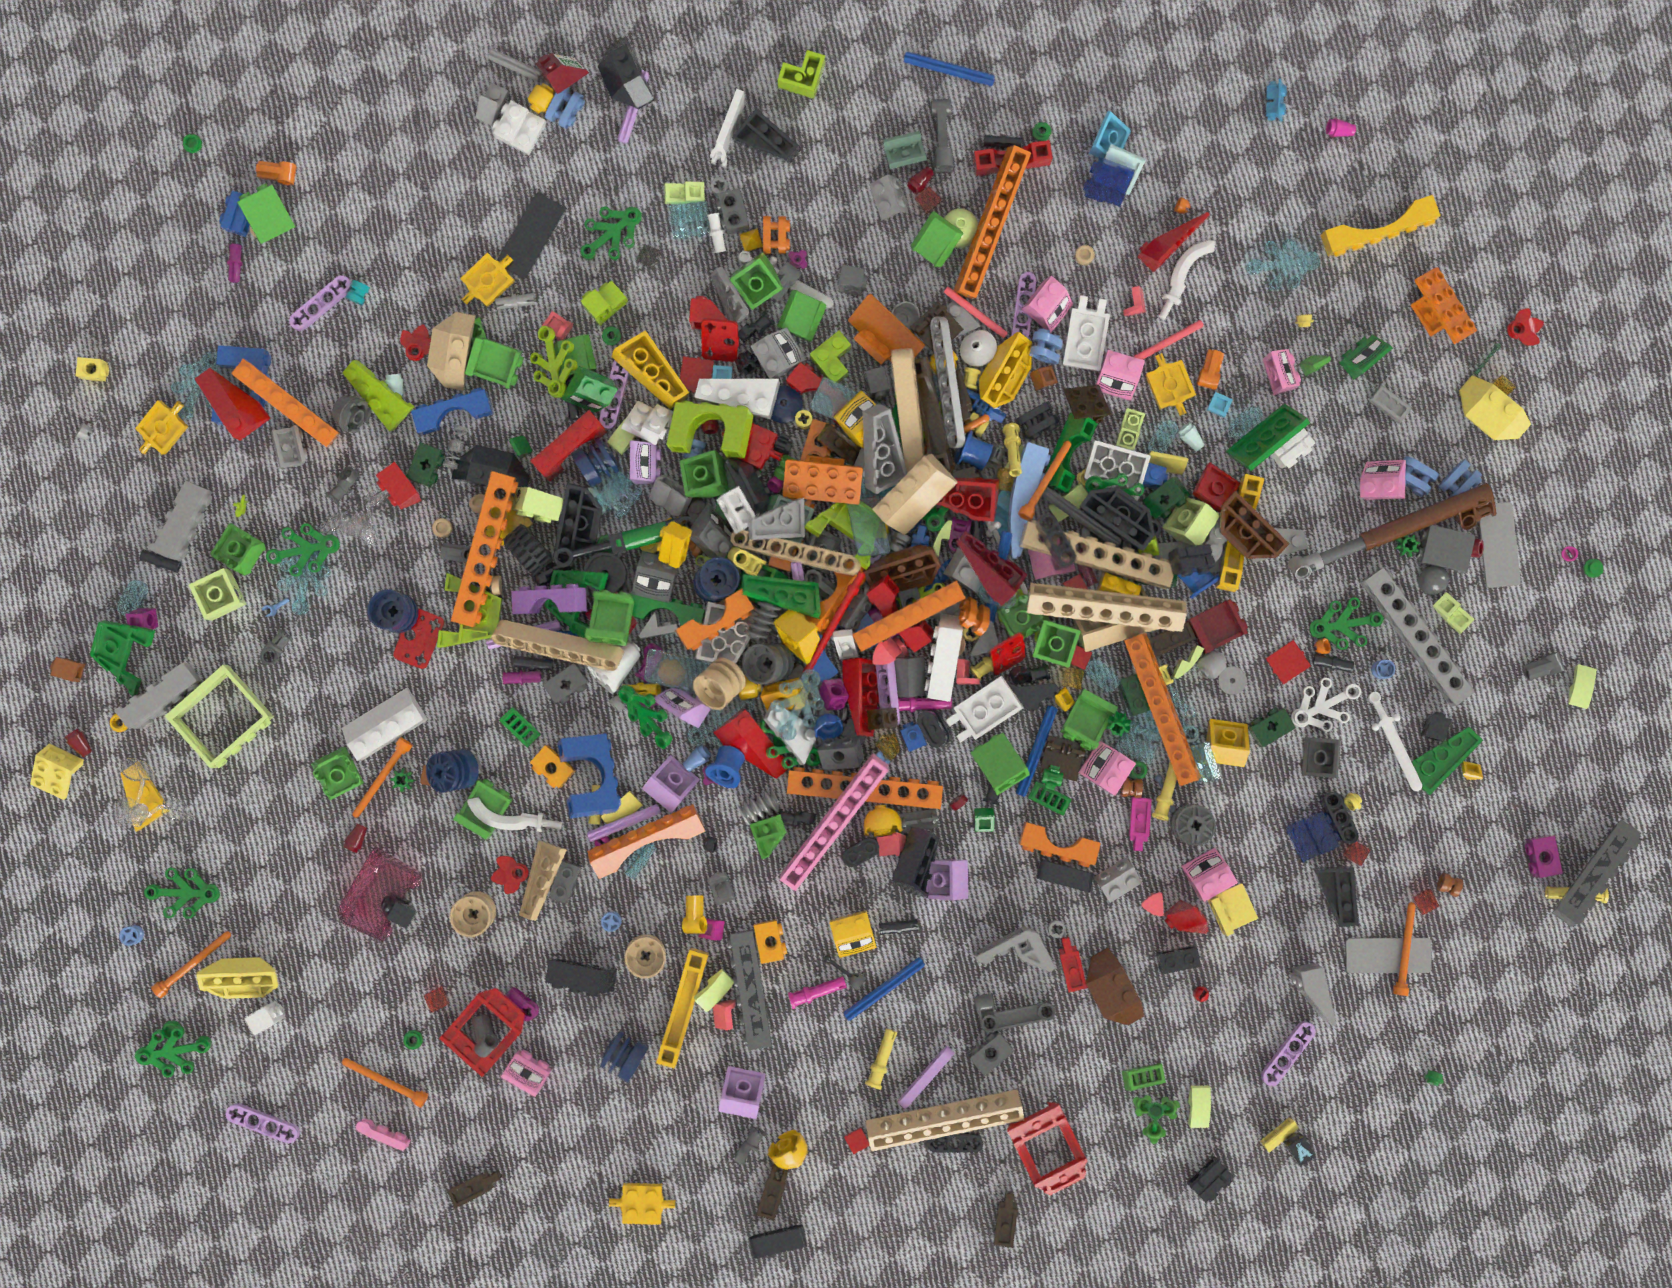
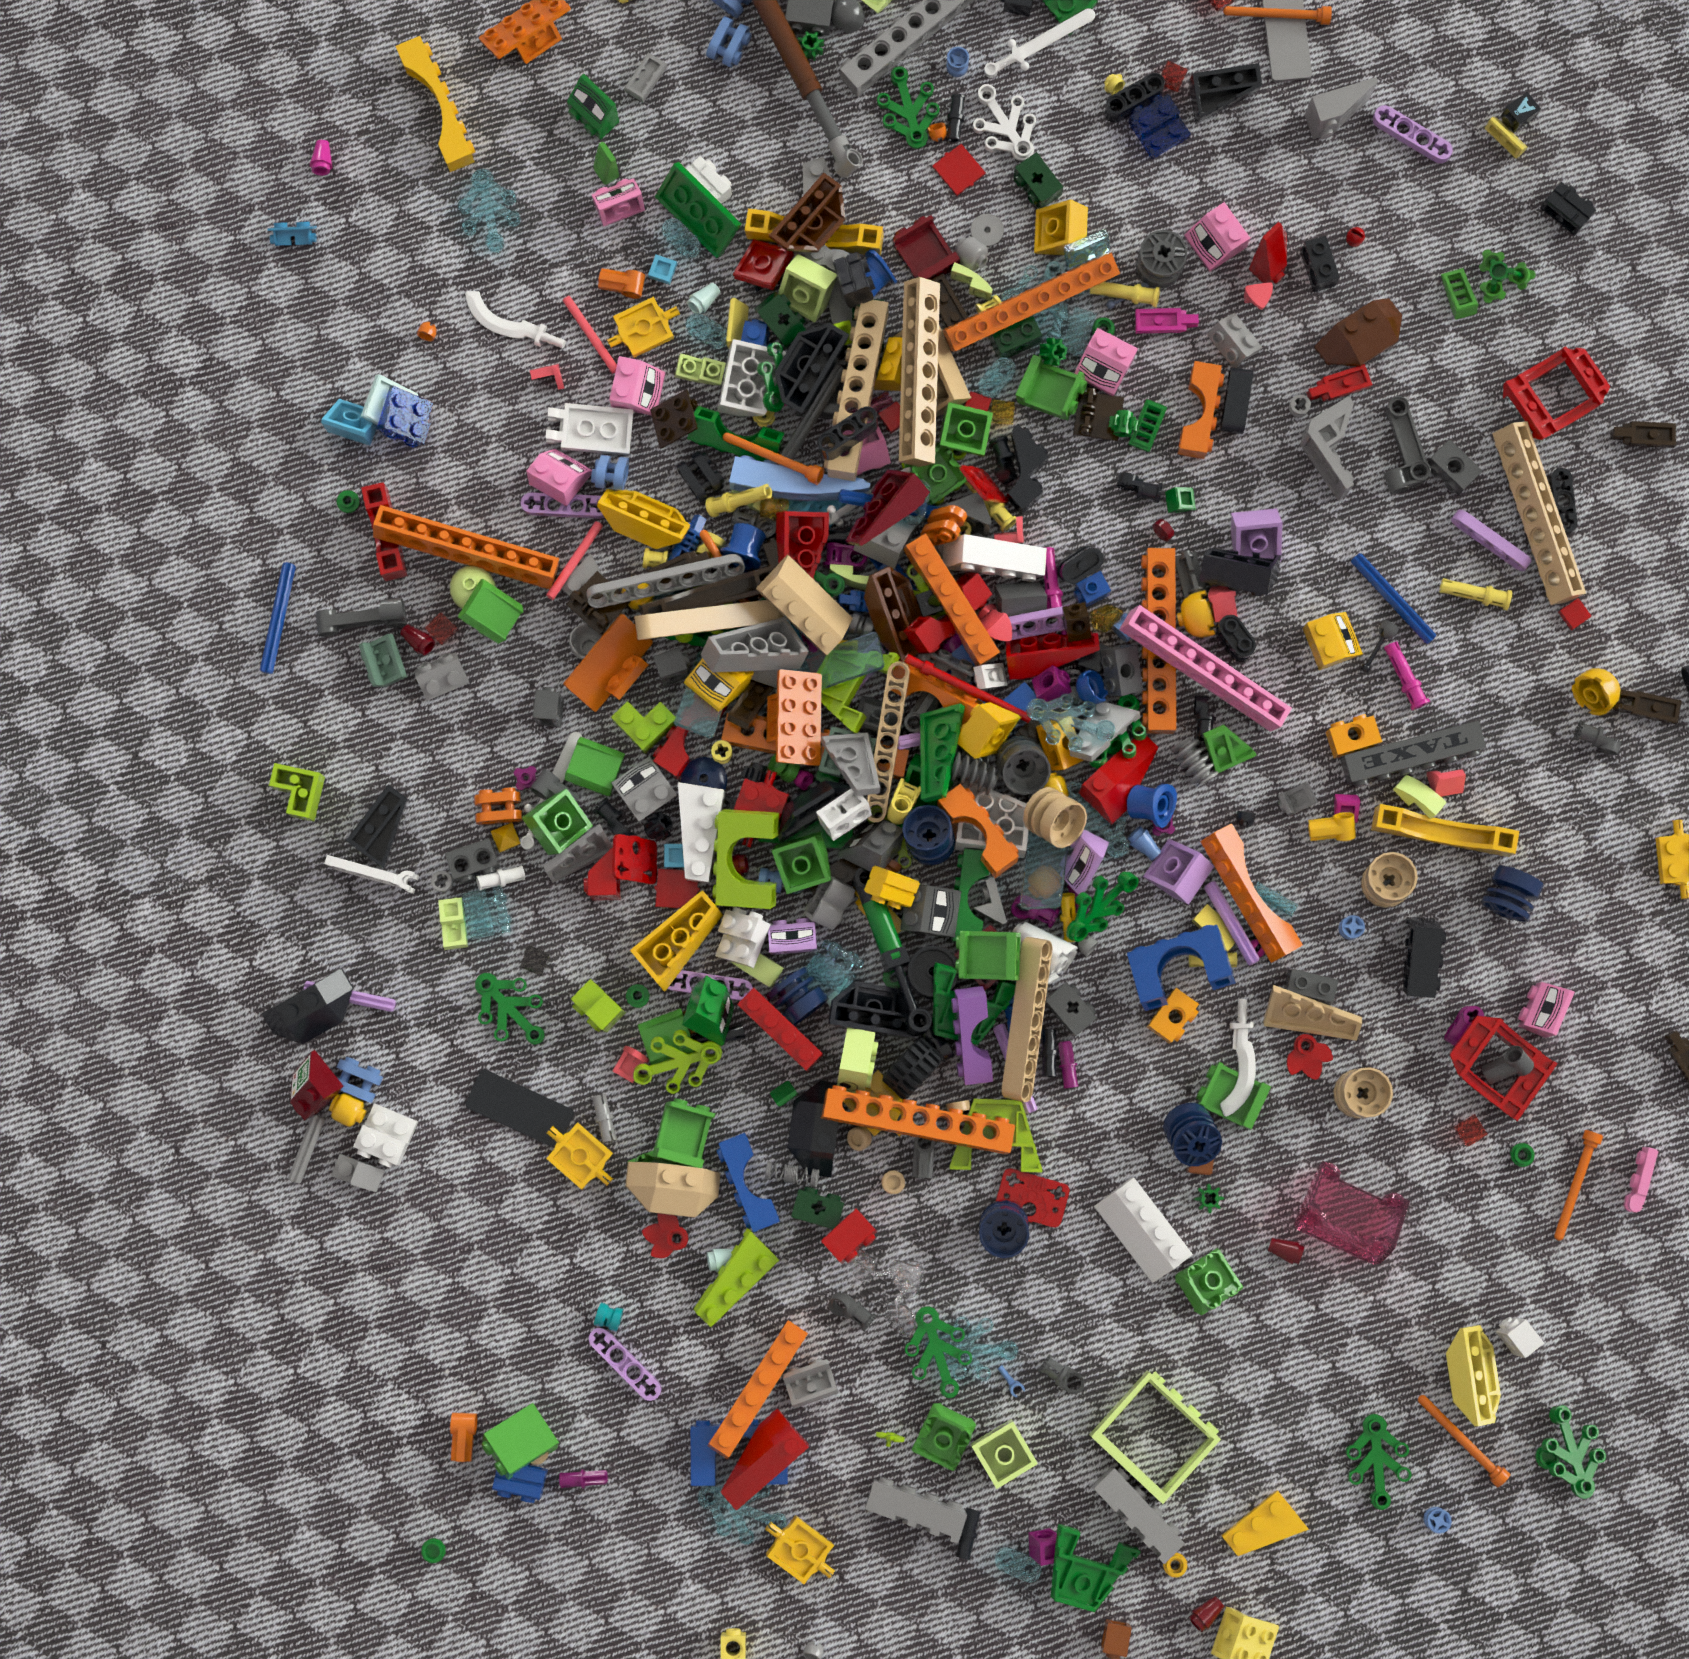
camera: 90 degrees left, 5 degrees down
(133, 812) = (1288, 1523): clear plant -> none
(261, 1127) = (1641, 1329): lavender beam -> none
(351, 413) = (761, 1308): dark grey cone -> none
(398, 910) = (1369, 1184): black brick -> none
(402, 747) = (1169, 1204): orange piece -> none
(508, 715) = (1135, 1066): green slope -> none
(741, 1092) = (1536, 752): lavender slope -> none
(898, 927) = (1318, 587): black pin -> none
(983, 353) = (628, 552): white dish -> none
(985, 709) = (1052, 506): white tile -> none
(1000, 763) = (1113, 483): bright green panel -> none
(1001, 141) = (363, 547): black pin -> none
(1037, 749) = (1093, 446): blue axle -> none
(1043, 377) = (646, 475): dark orange slope -> none
(1064, 699) = (1029, 419): yellow slope -> none
(1075, 496) = (787, 422): yellowish green slope -> none
(1084, 255) = (494, 440): tan tile -> none
(1132, 787) = (1125, 330): dark orange wheel -> none
(1162, 247) = (482, 348): red wedge -> none
(1199, 1106) = (1486, 225): yellowish green slope -> none
(1232, 909) = (1255, 208): light yellow bracket -> none
(1304, 320) = (554, 181): light yellow plate -> none
(1321, 757) = (1067, 121): dark grey slope -> none
(1383, 480) = (736, 76): bright pink slope -> none

